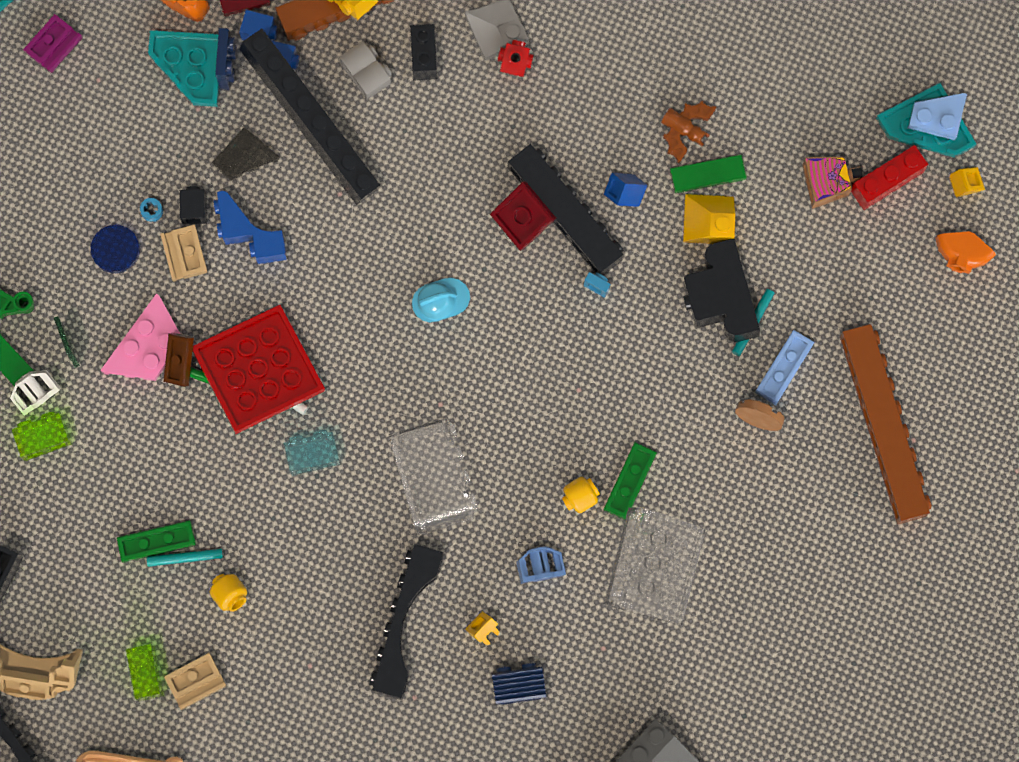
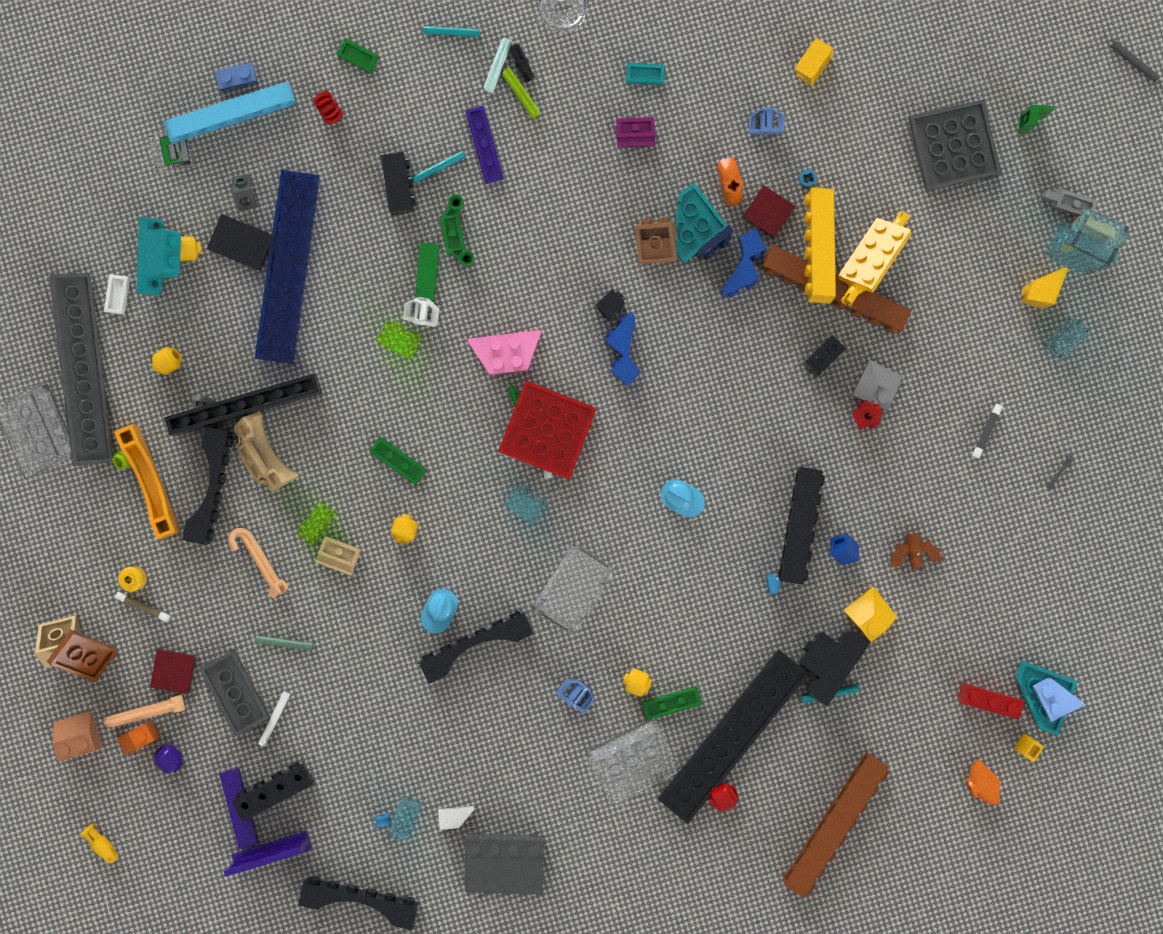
camera: 55 degrees right, 10 degrees up
(66, 341) = (465, 305): clear green piece -> none
(115, 249) = (545, 281): clear blue tile -> none
(144, 205) = (593, 281): dark azure bush -> none
(172, 110) = (656, 240): none -> medium nougat plate
(178, 359) = (512, 379): reddish brown plate -> none
(184, 253) = (578, 324): tan plate -> none
(184, 557) = (403, 485): teal bar -> none
(243, 155) = (667, 305): clear smoke wing -> none
(309, 116) = (723, 325): black brick -> none
(339, 631) = (439, 611): none -> medium azure piece
(365, 70) = (782, 331): light grey brick -> none
(481, 627) = (510, 692): yellow tile -> none
(518, 684) = (496, 742): dark blue brick -> none
(522, 216) = (774, 503): dark red tile -> none
(708, 174) = (897, 589): green tile -> none
(713, 449) = (733, 736): none -> black plate
(759, 415) = (776, 748): medium nougat tile -> none
(765, 508) = (723, 797): none -> red head
(784, 367) = (819, 735): light blue tile -> none
(828, 179) = (958, 665): torso -> none

